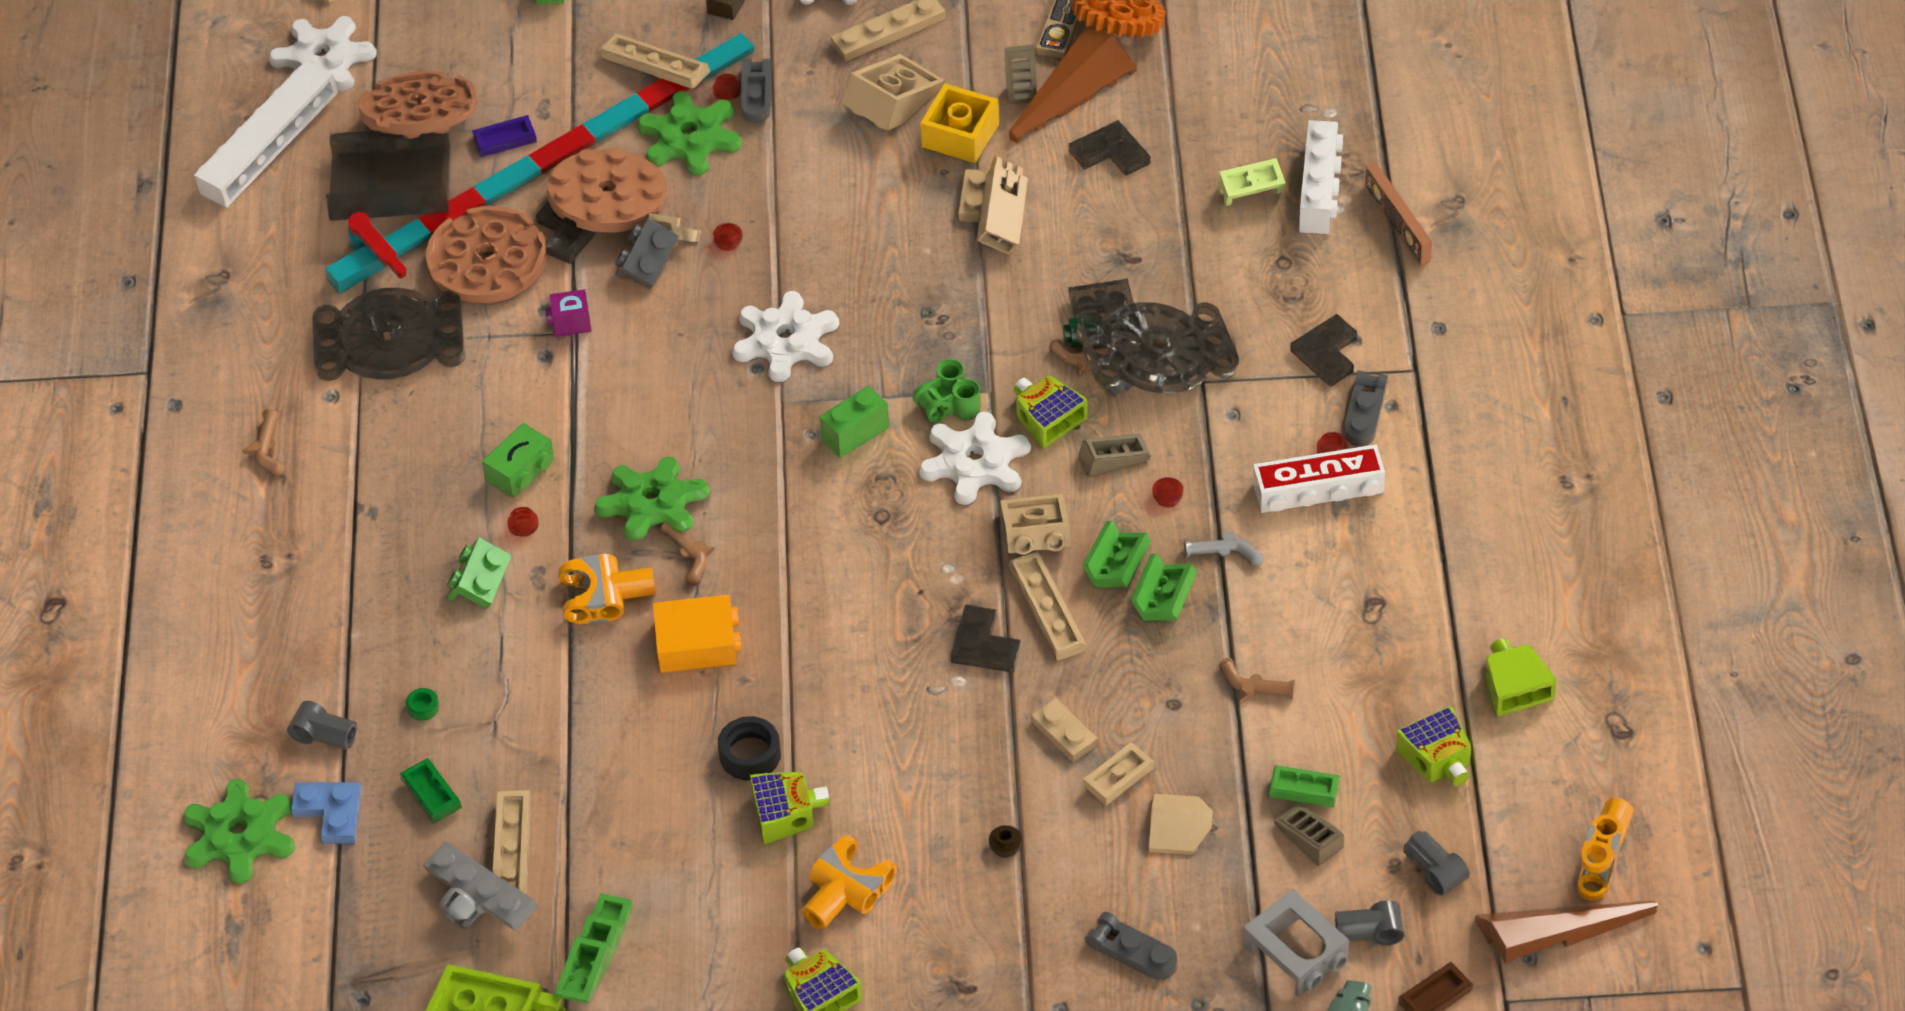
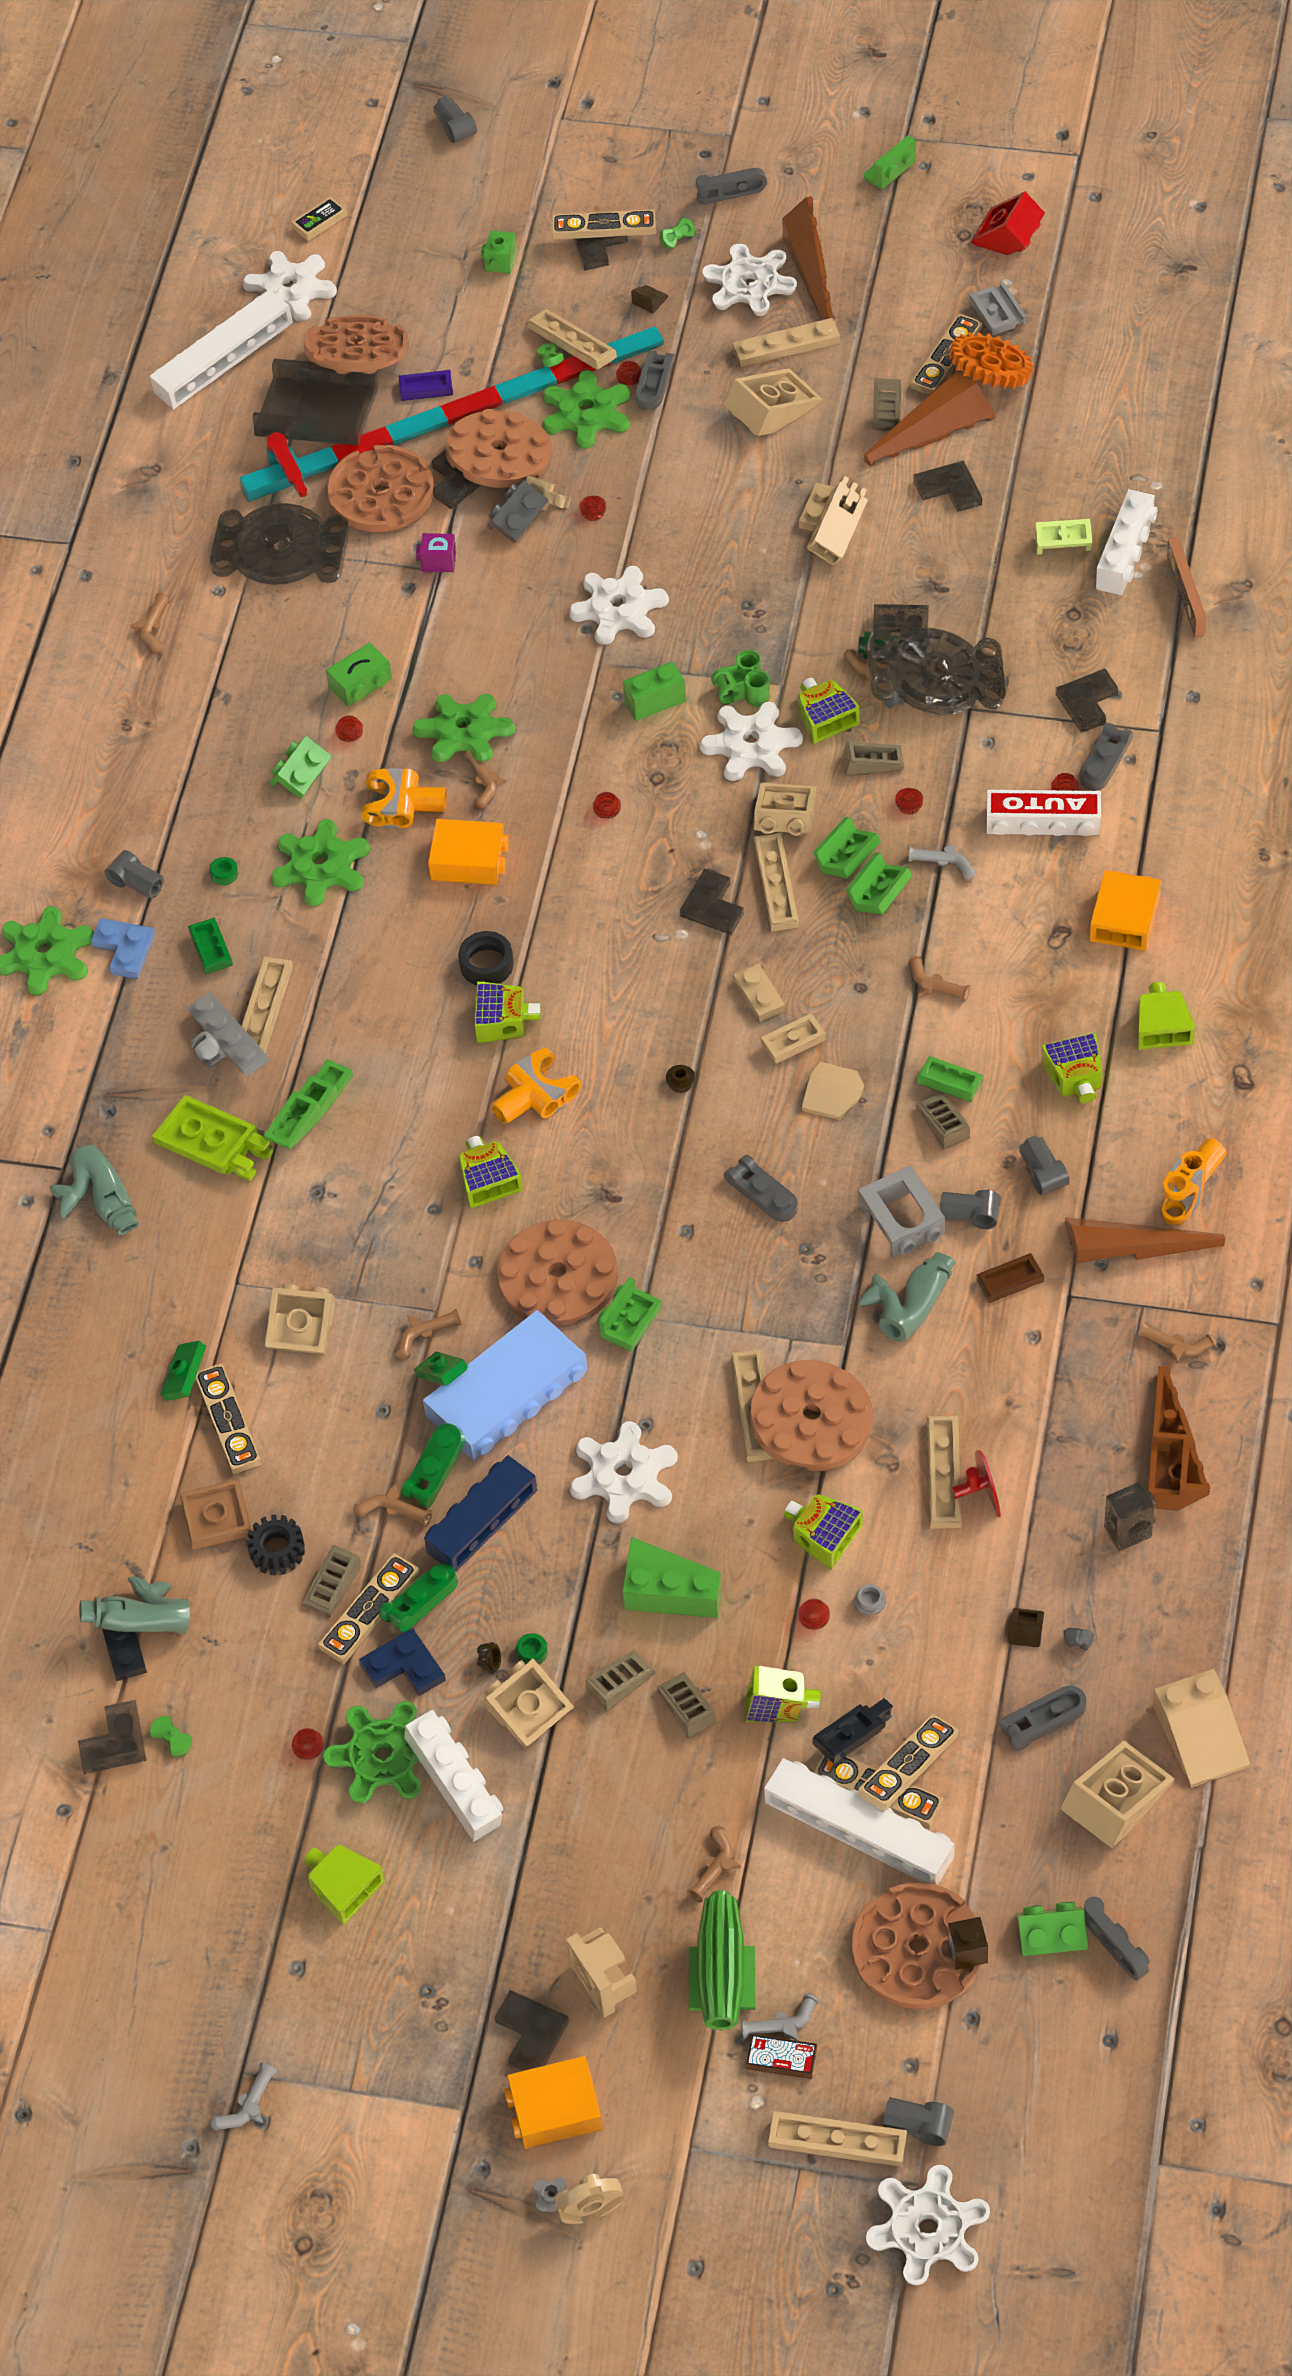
camera: 15 degrees right, 5 degrees up
(535, 691) = (320, 877): none -> bright green plate
(632, 80) = (549, 355): none -> bright green piece
(836, 555) = (606, 805): none -> clear red plate
(959, 123) = (821, 440): yellow brick -> none
(1439, 567) = (1125, 910): none -> light orange brick

